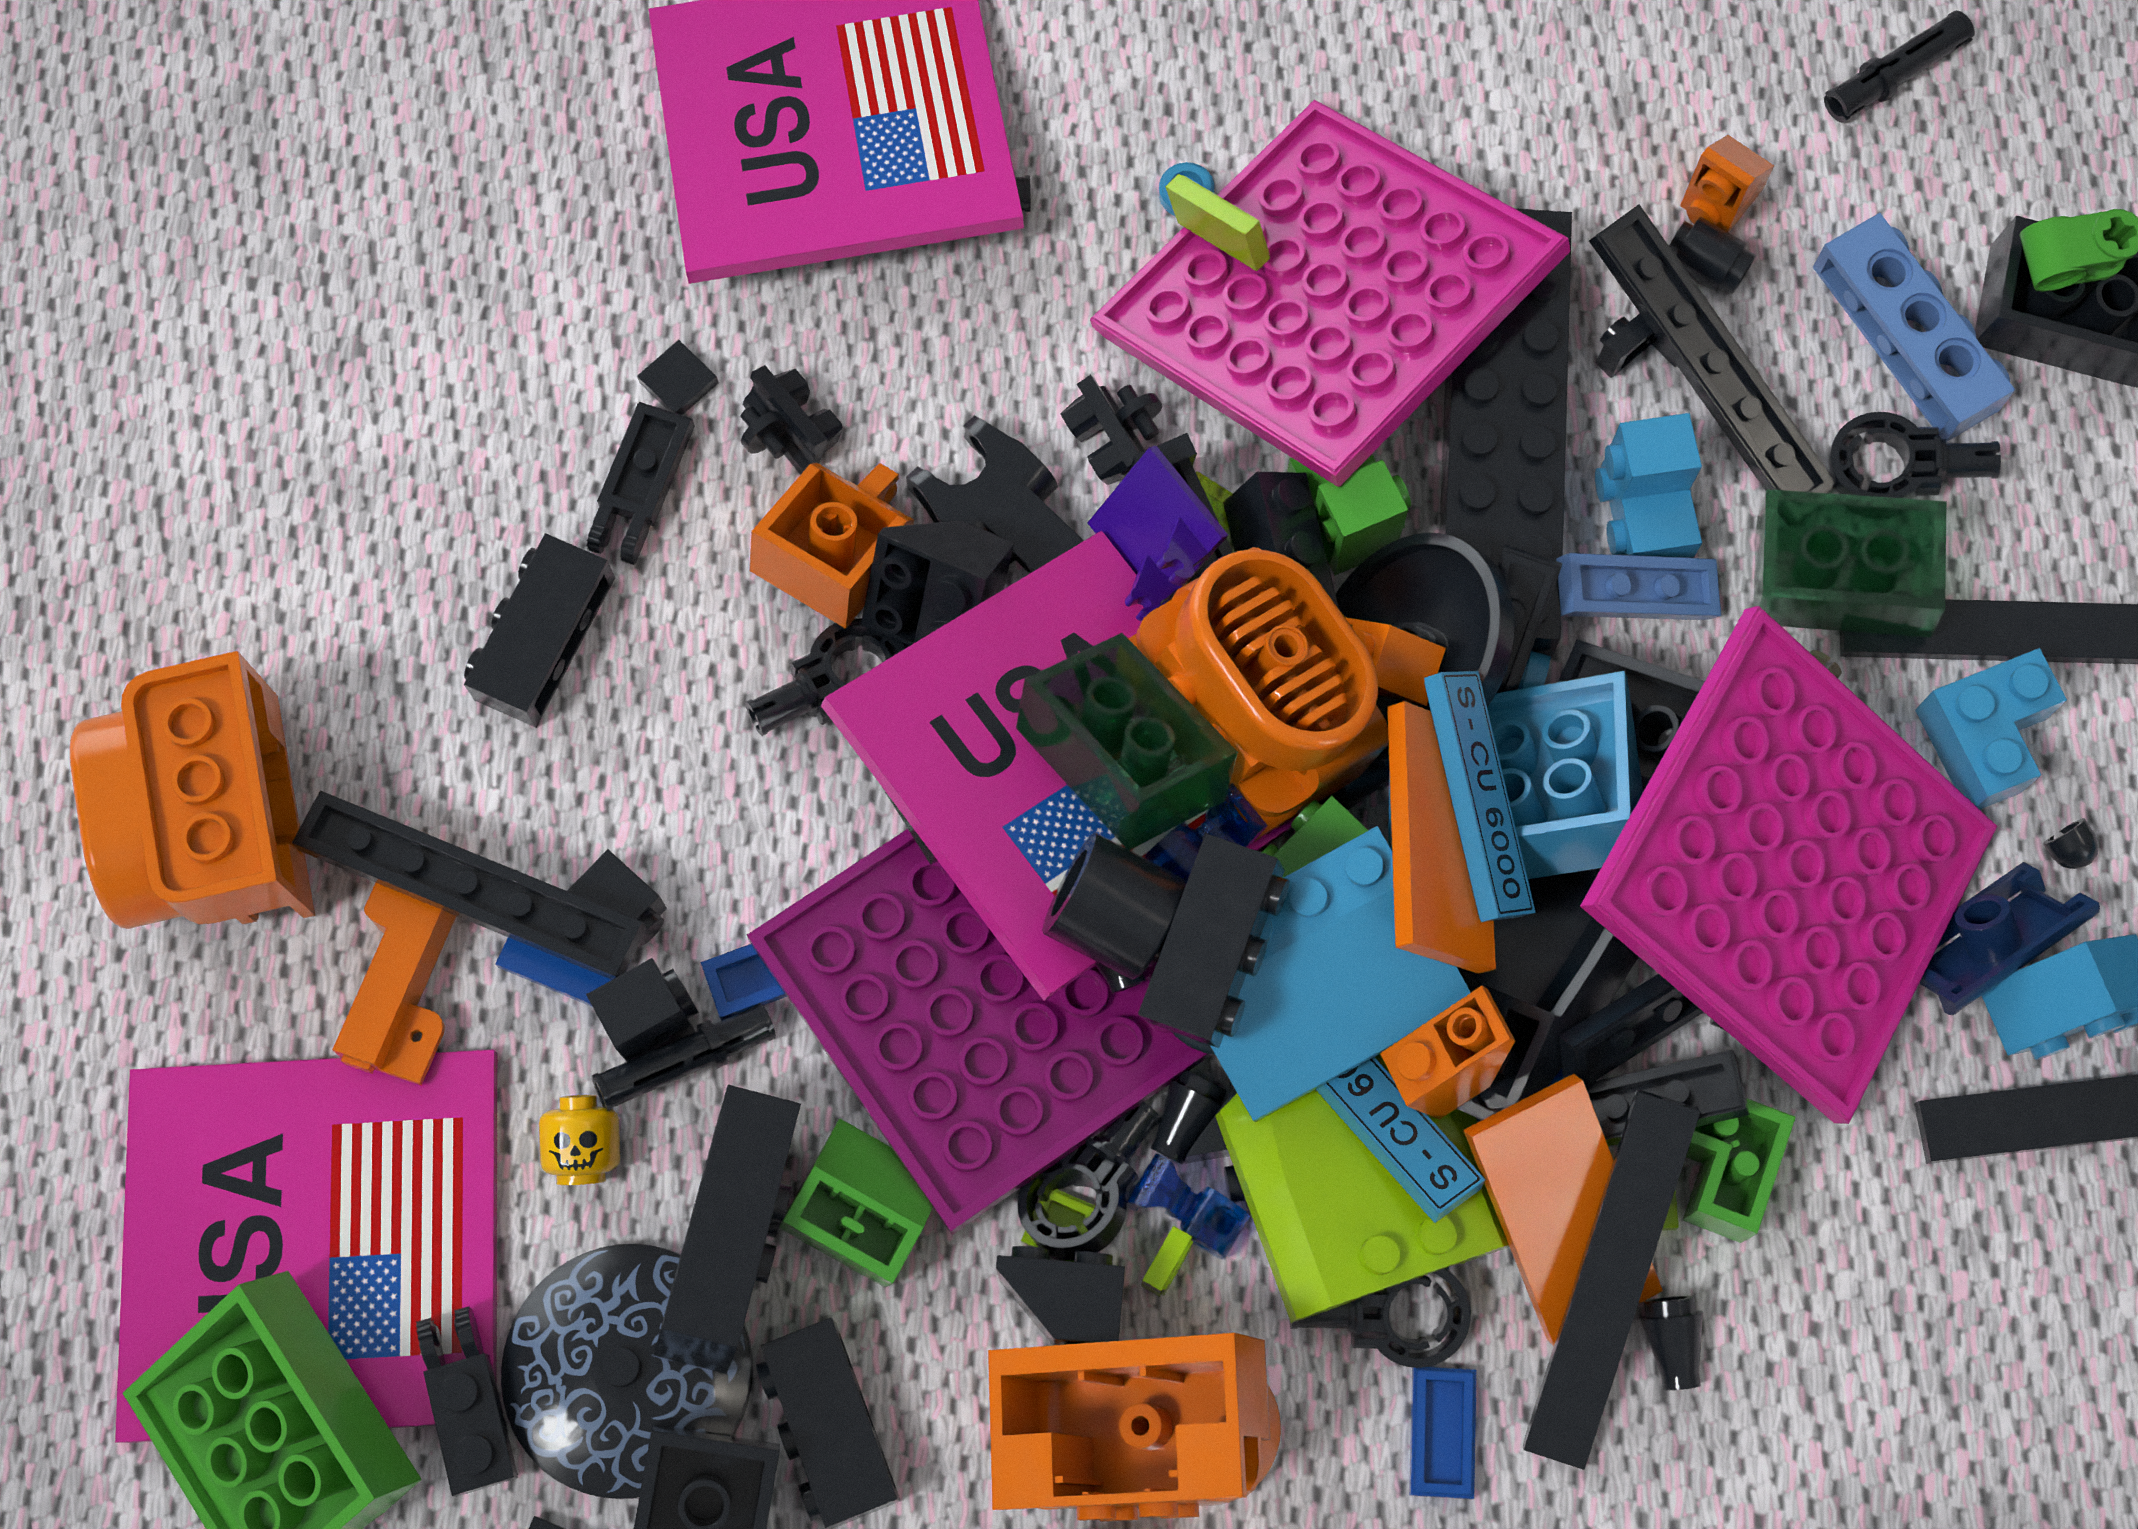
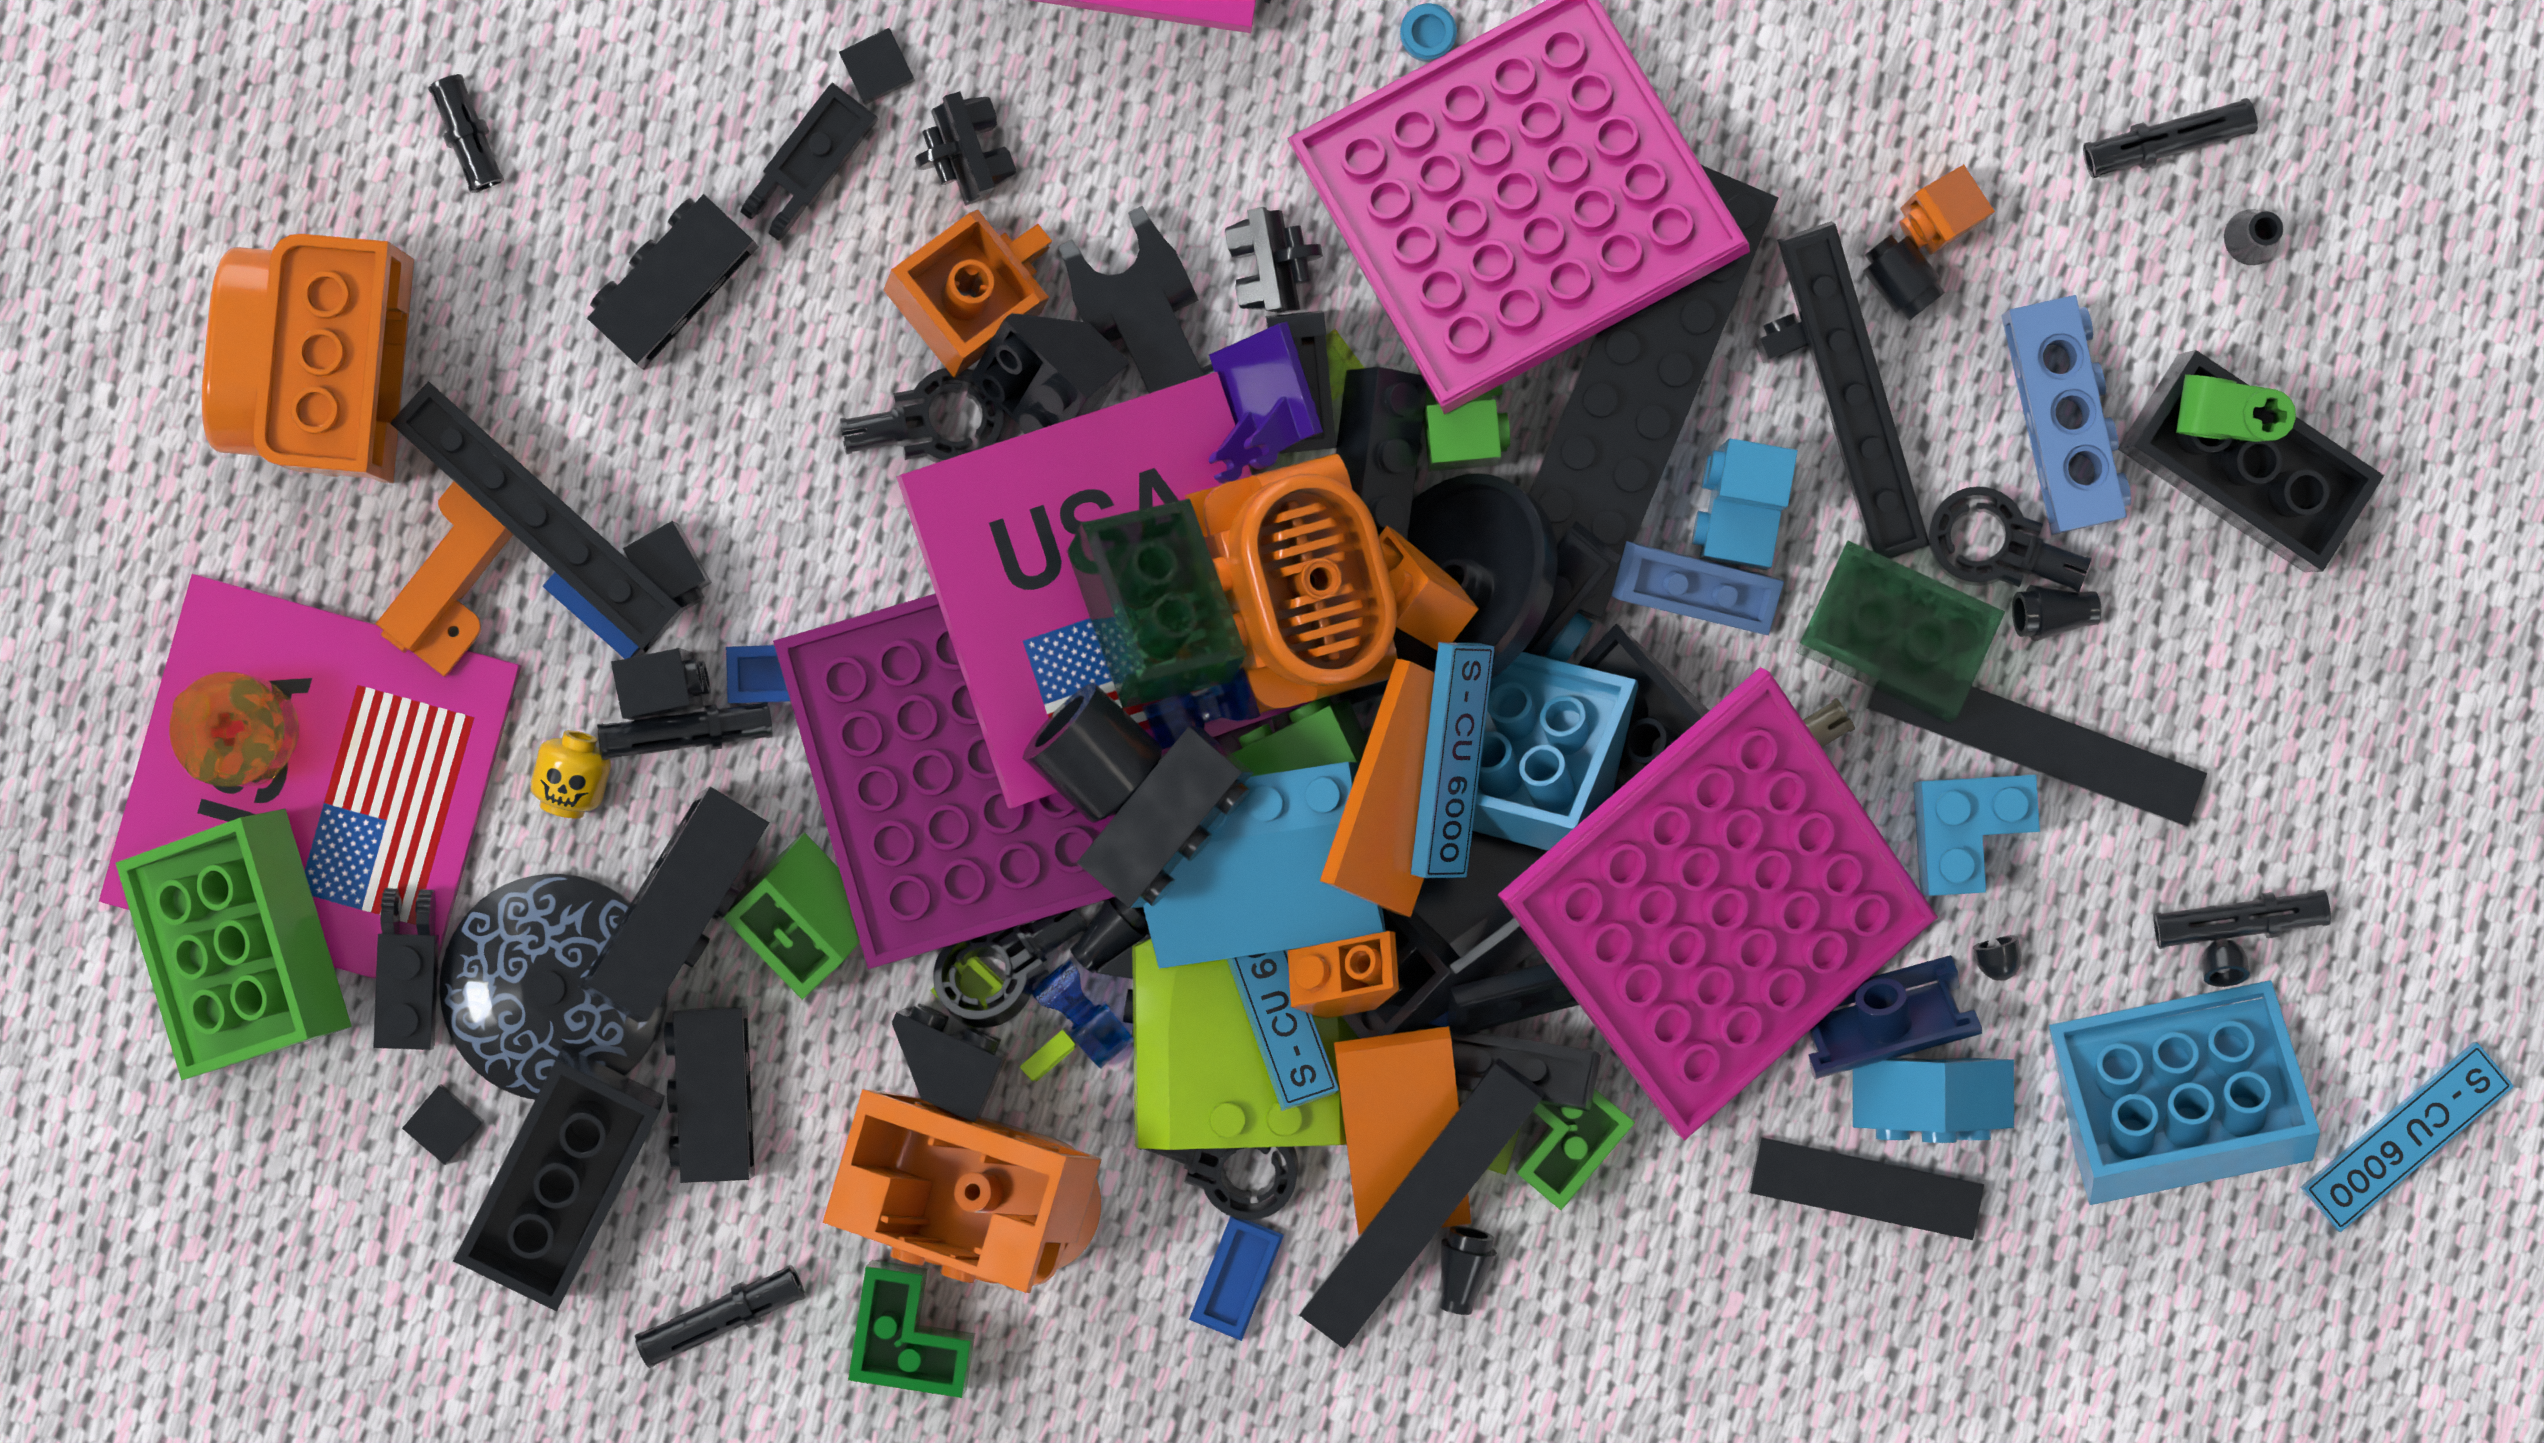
camera: 20 degrees right, 15 degrees up
(179, 1193) = (209, 708): none -> clear yellow brick
(295, 562) = (465, 133): none -> black pin
(1218, 221) = (1437, 92): lime tile -> none
(1980, 505) = (2053, 611): none -> black cone
(2016, 118) = (2244, 243): none -> black cone

